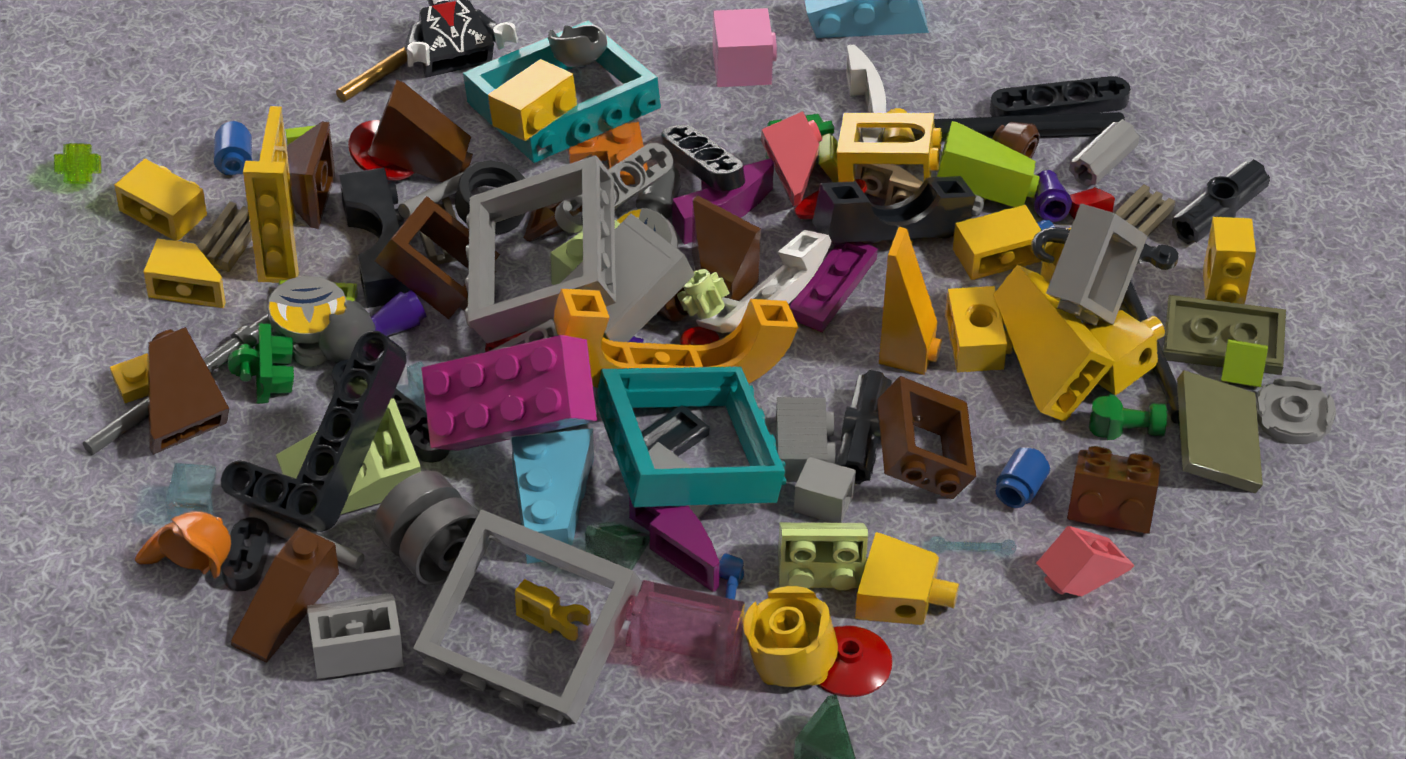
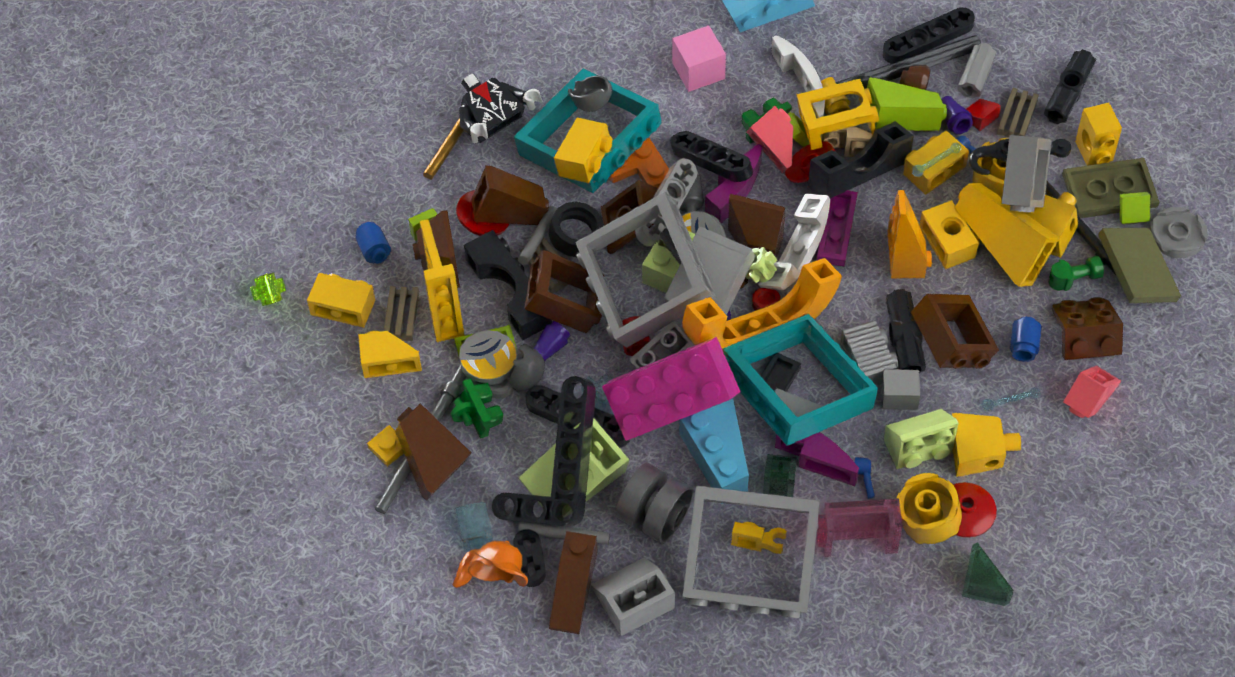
camera: 15 degrees left, 10 degrees up
(965, 239) = (918, 170): none -> clear light blue hinge

